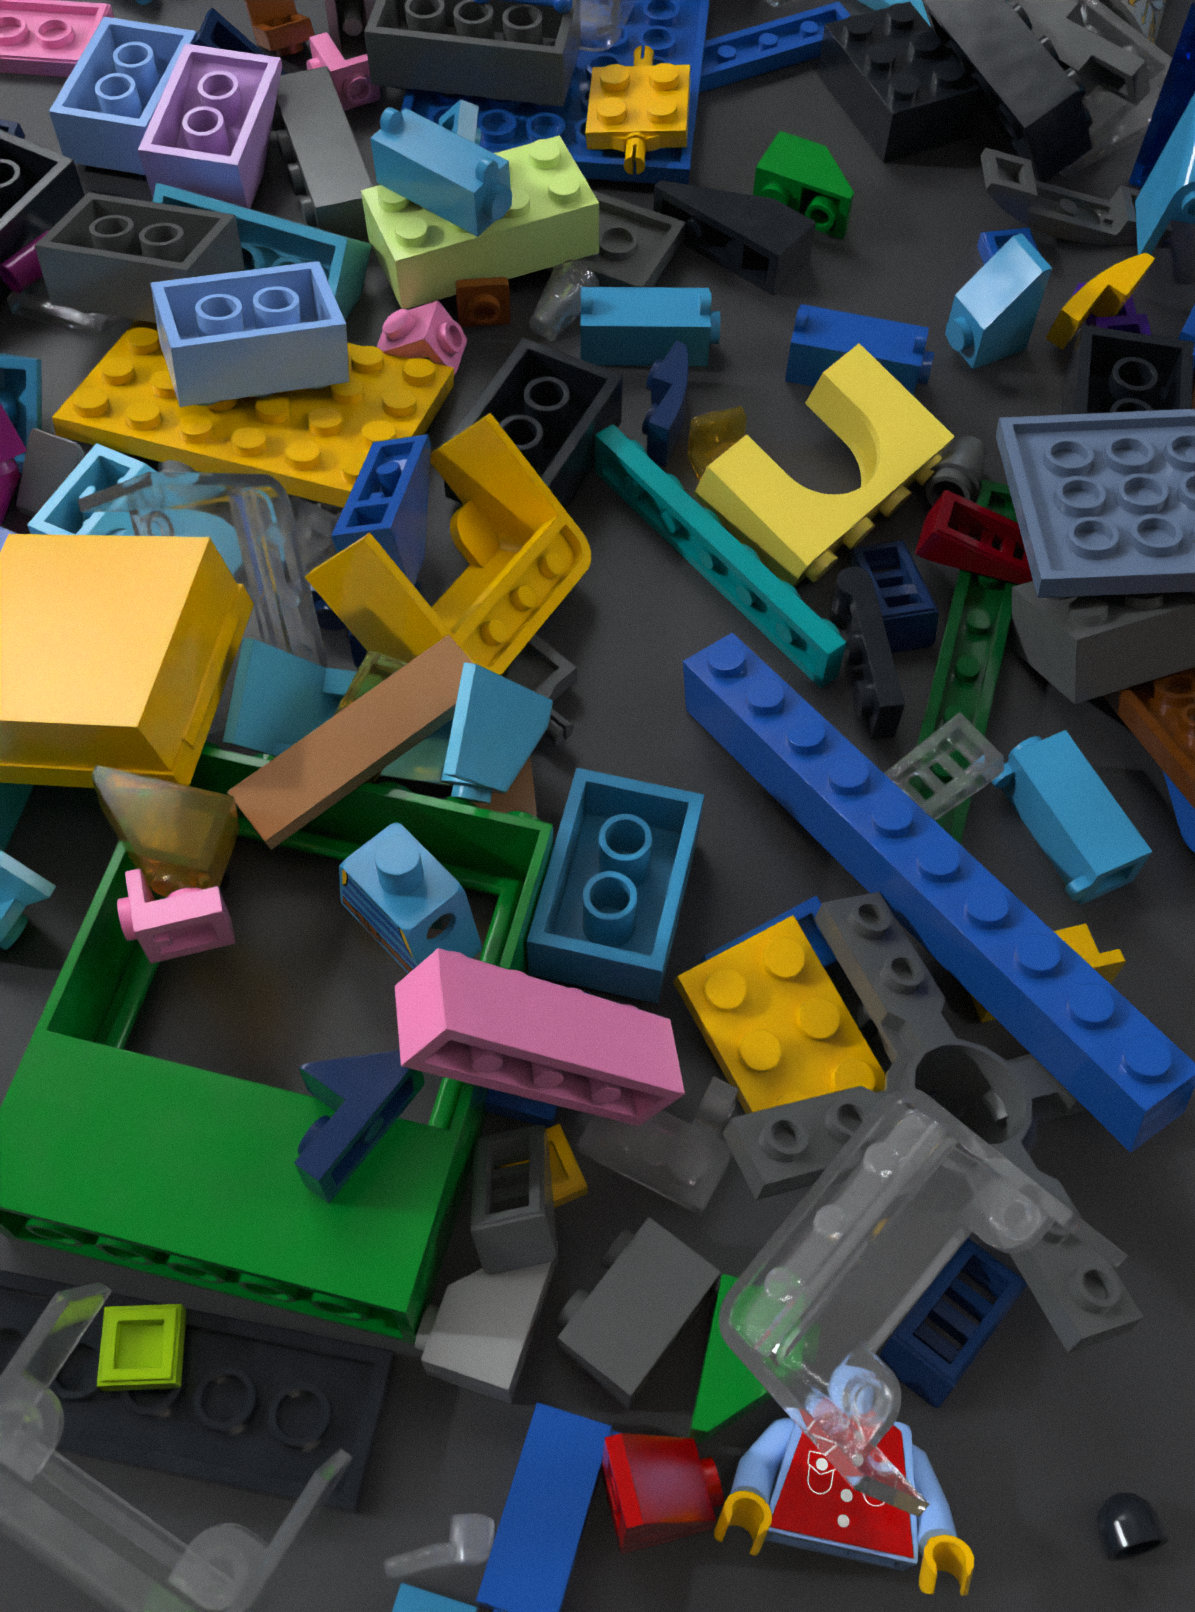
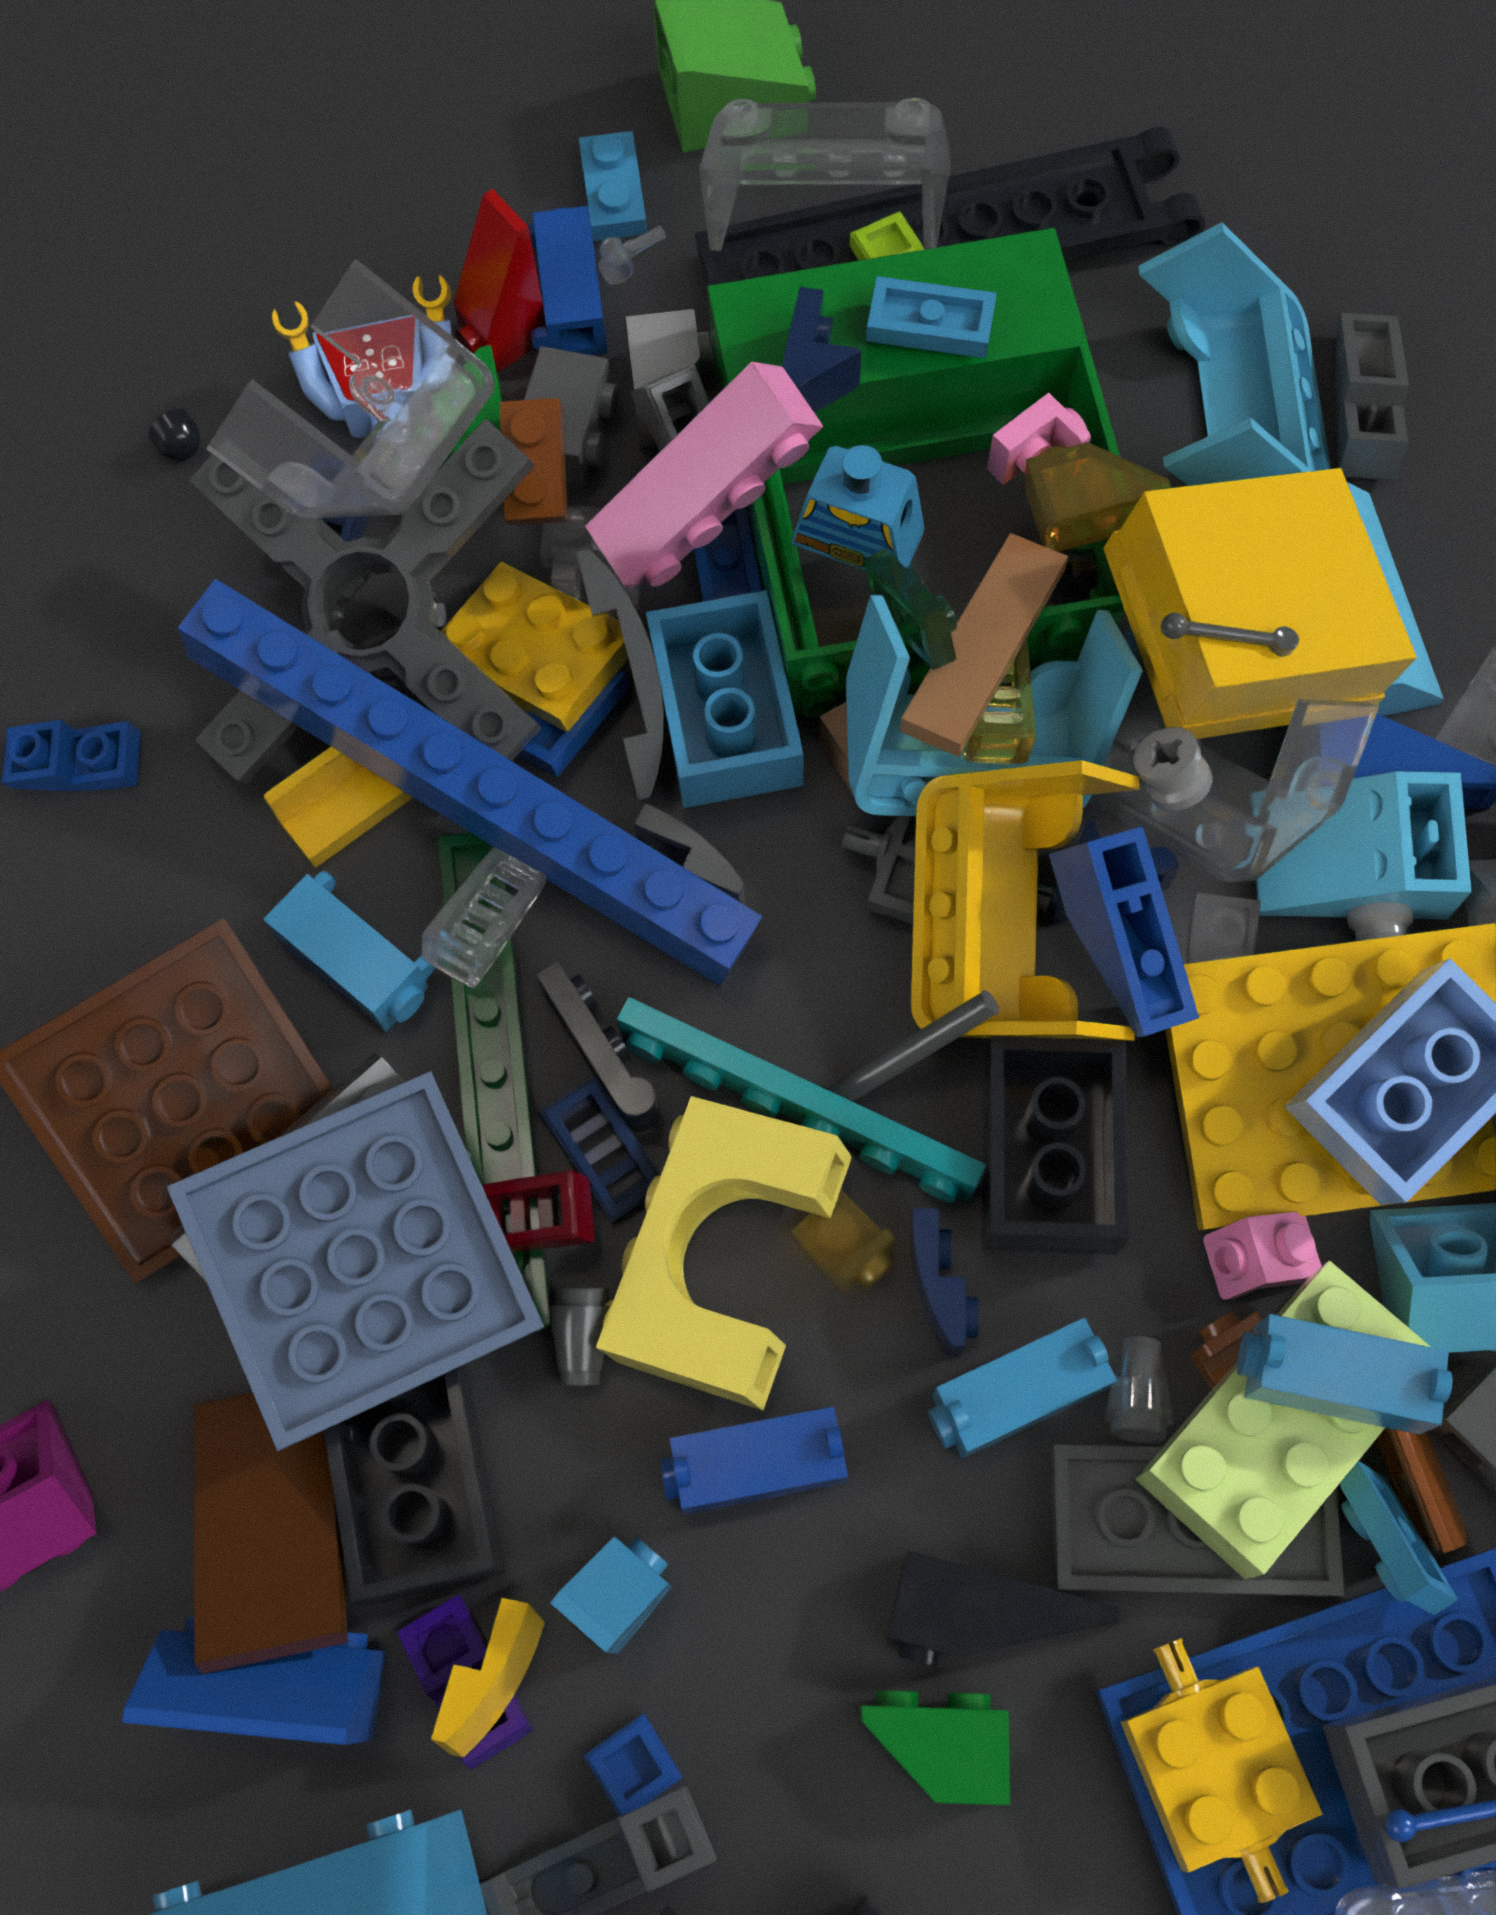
camera: 160 degrees right, 10 degrees up
(119, 560) = (1280, 642): none -> dark grey hinge
(185, 1114) = (931, 317): none -> dark azure plate
(263, 584) = (1173, 769): none -> light grey wheel
(412, 746) = (919, 616): none -> clear green plate
(606, 525) = (917, 1047): none -> dark grey bar
(697, 959) = (607, 597): none -> dark grey slope
(702, 1230) = (538, 432): none -> dark orange plate
(709, 756) = (688, 850): none -> dark grey slope

